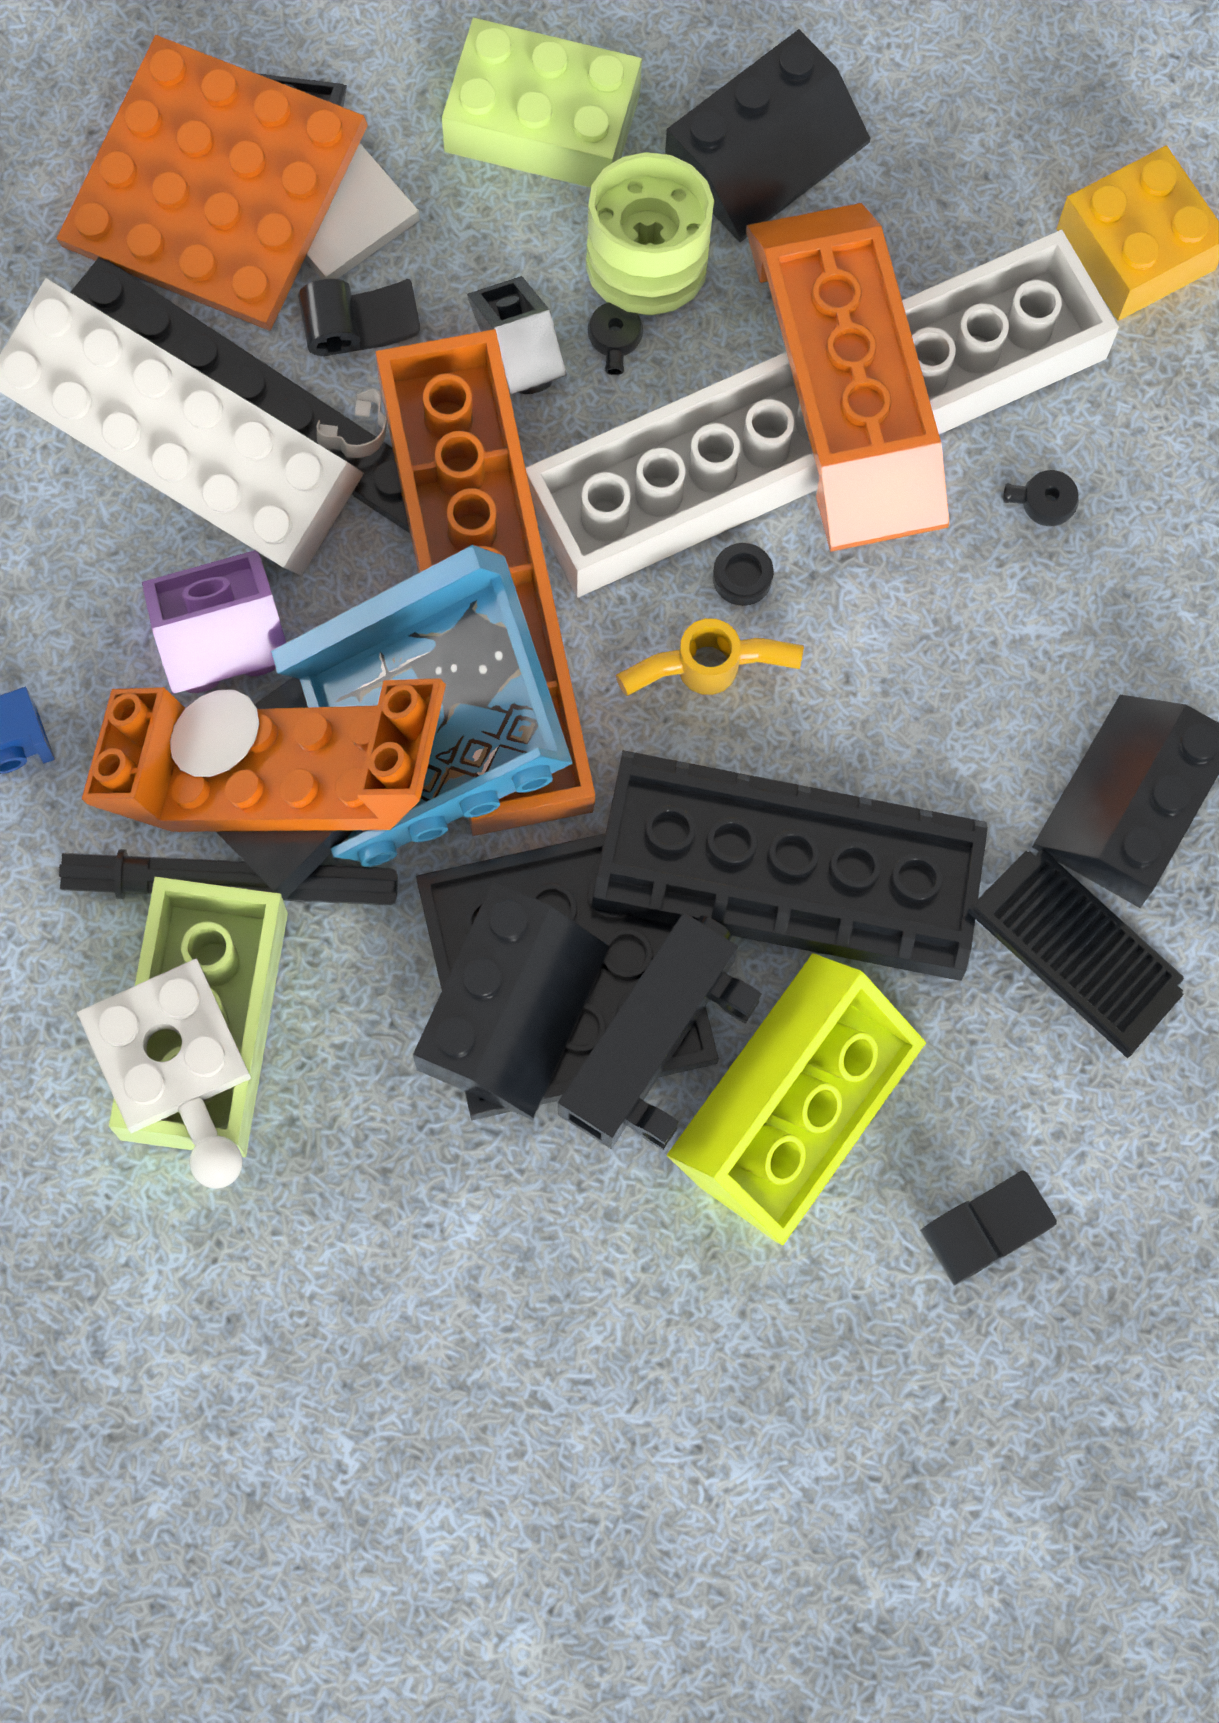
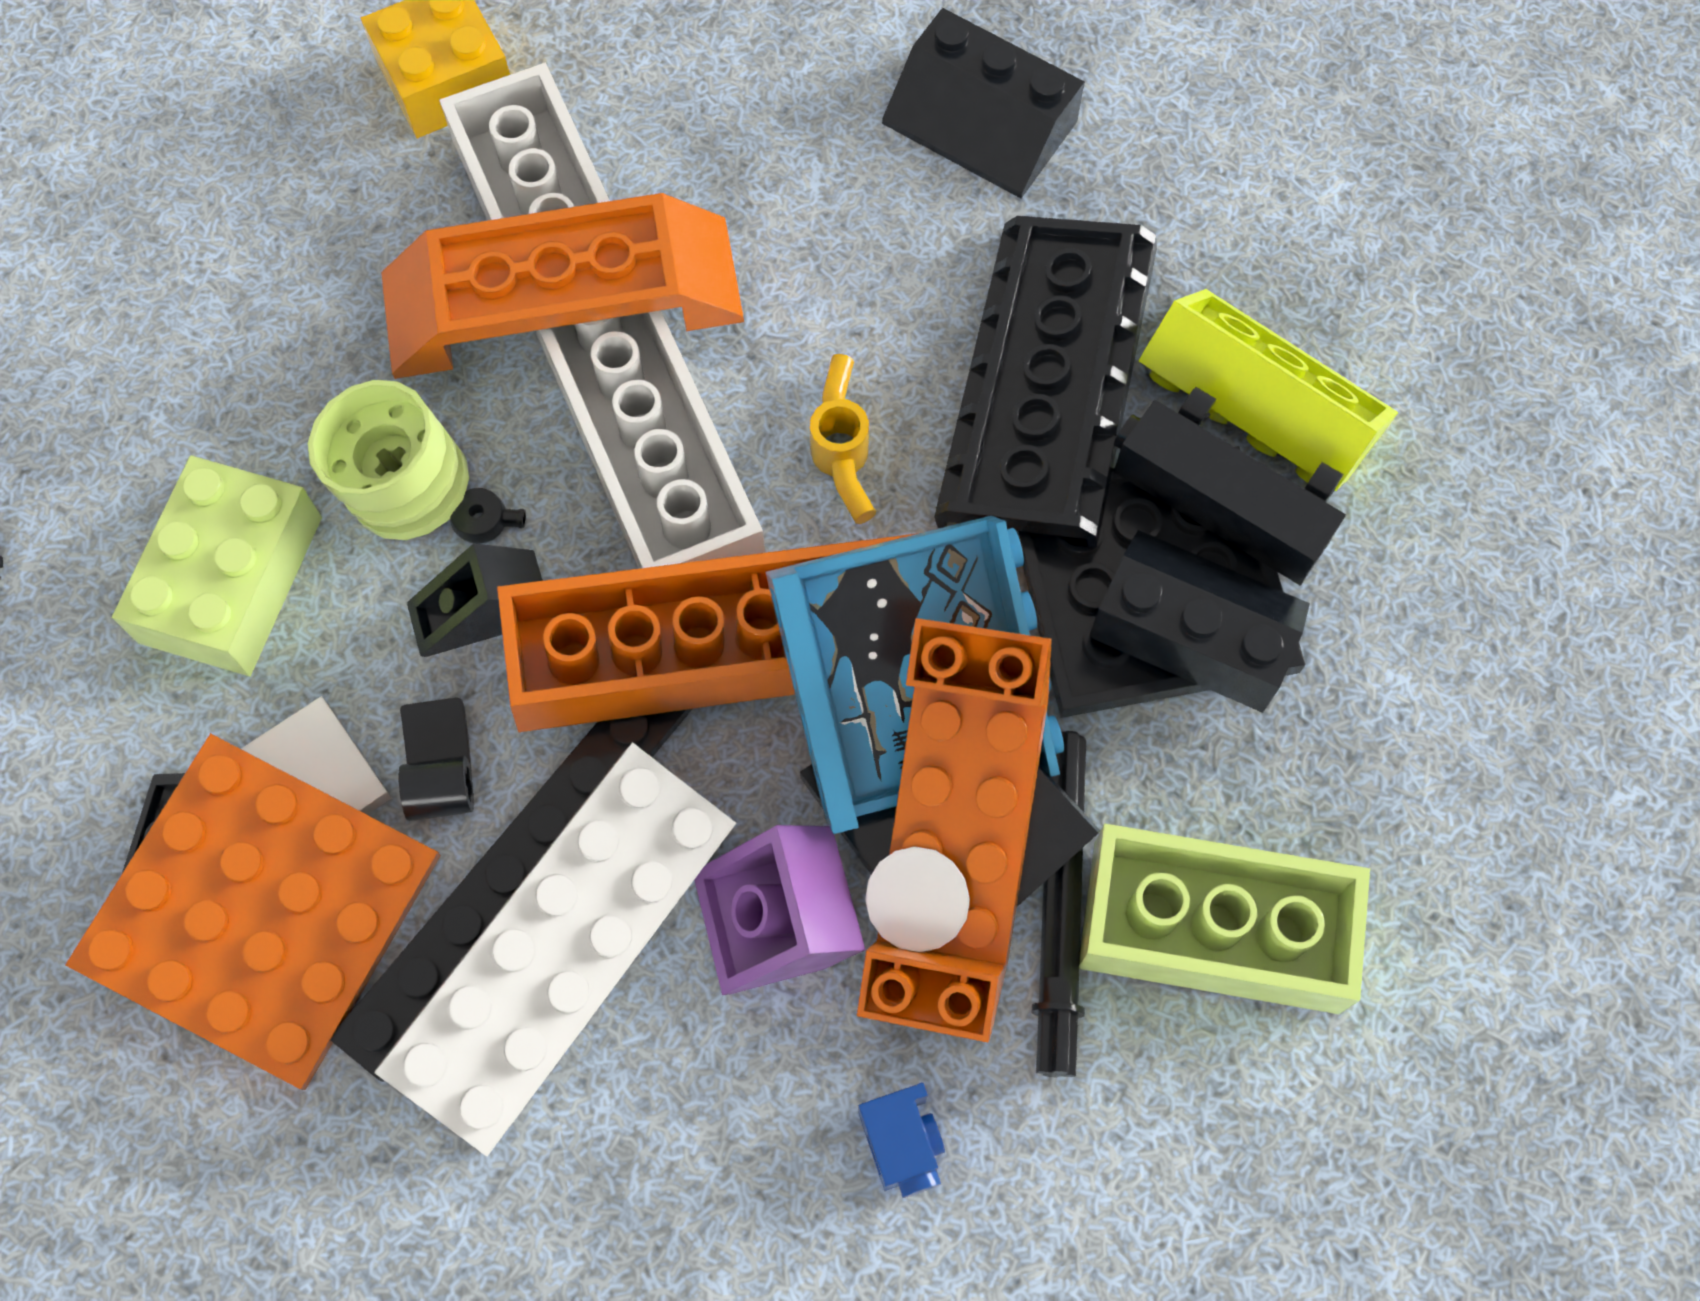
camera: 85 degrees left, 5 degrees down
(155, 1089) = (1298, 896): white plate -> none
(328, 437) = (574, 787): white piece -> none
(743, 574) = (749, 413): black tile -> none
(770, 133) = (278, 354): black slope -> none
(988, 1227) = (1369, 252): black panel -> none
(1034, 497) = (689, 160): black piece -> none
(1080, 949) = (1126, 155): black window -> none

